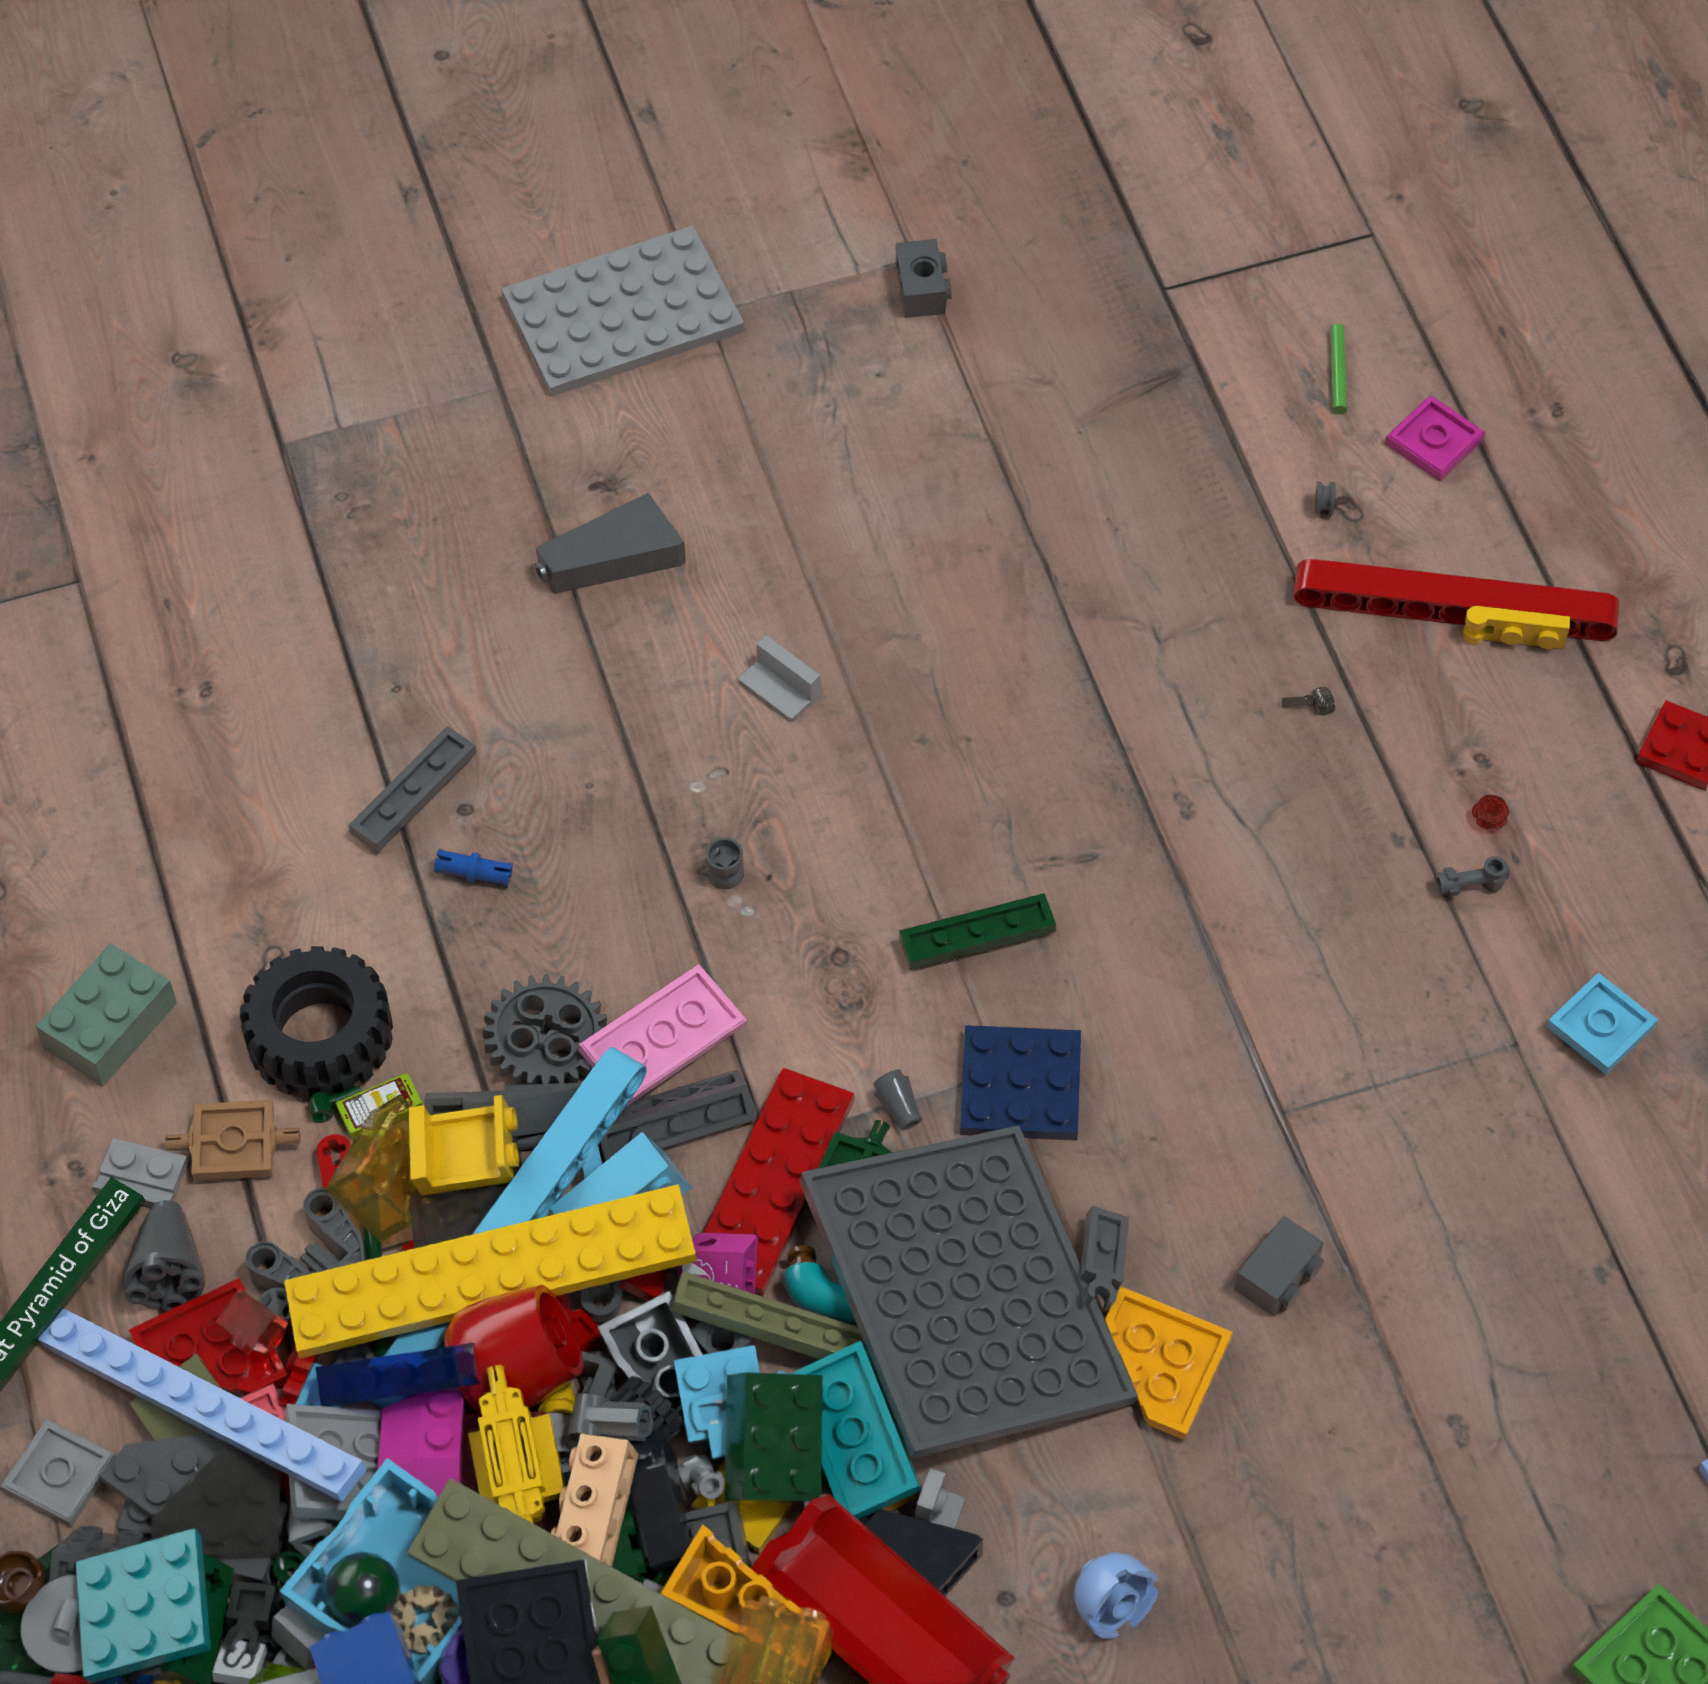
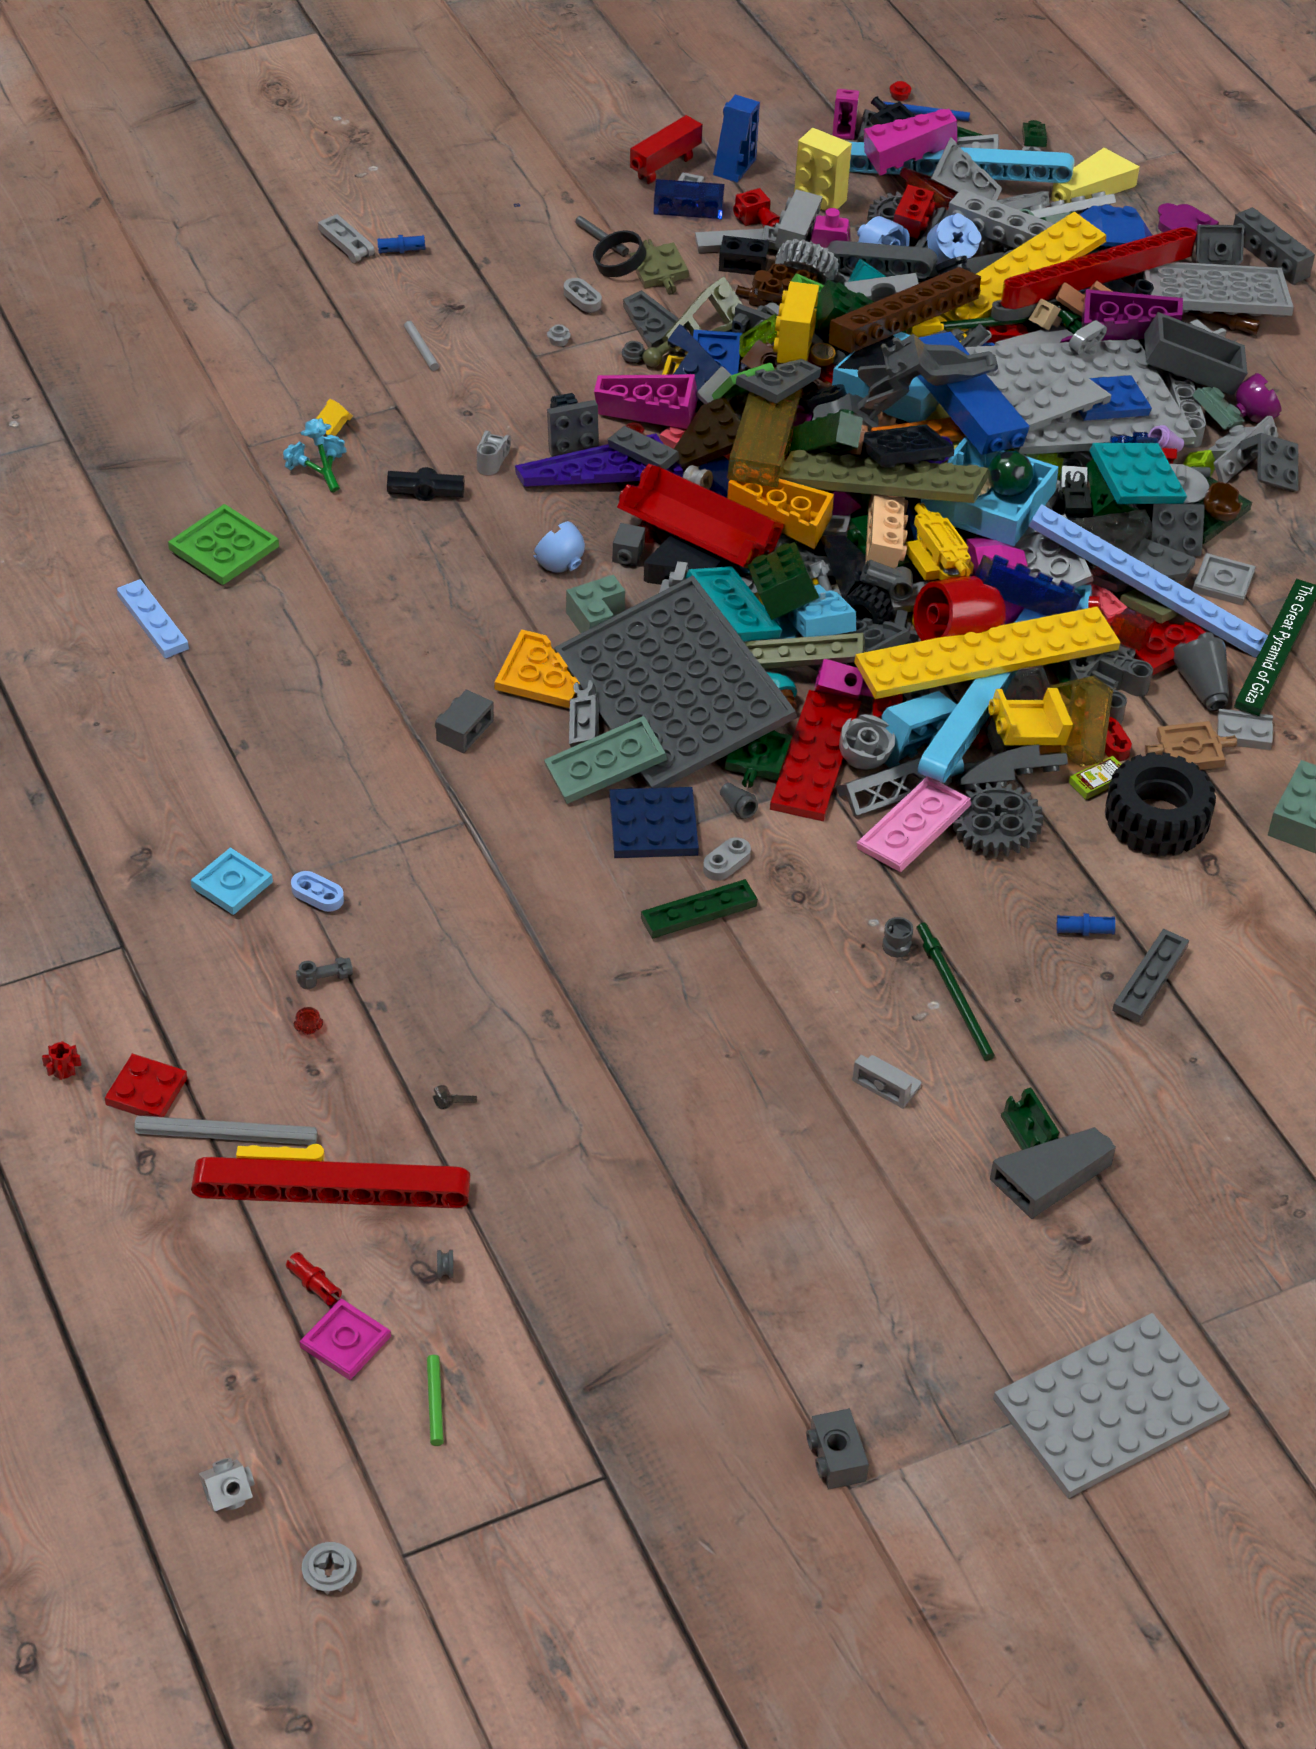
camera: 170 degrees right, 10 degrees down
(623, 604) = (1029, 1120): none -> dark green hinge
(680, 851) = (934, 950): none -> dark green bar
(704, 1150) = (866, 742): none -> light grey cylinder
(930, 1013) = (731, 857): none -> light grey plate
(1001, 1606) = (628, 544): none -> dark grey brick
(1073, 1473) = (595, 602): none -> sand green brick
(1080, 1166) = (605, 759): none -> sand green plate
(1460, 217) = (317, 1560): none -> light grey gear
(1472, 495) = (313, 1278): none -> red pin
(1488, 998) = (319, 893): none -> light blue plate
(1555, 285) = (227, 1484): none -> light grey brick
(1583, 680) = (225, 1130): none -> light grey axle

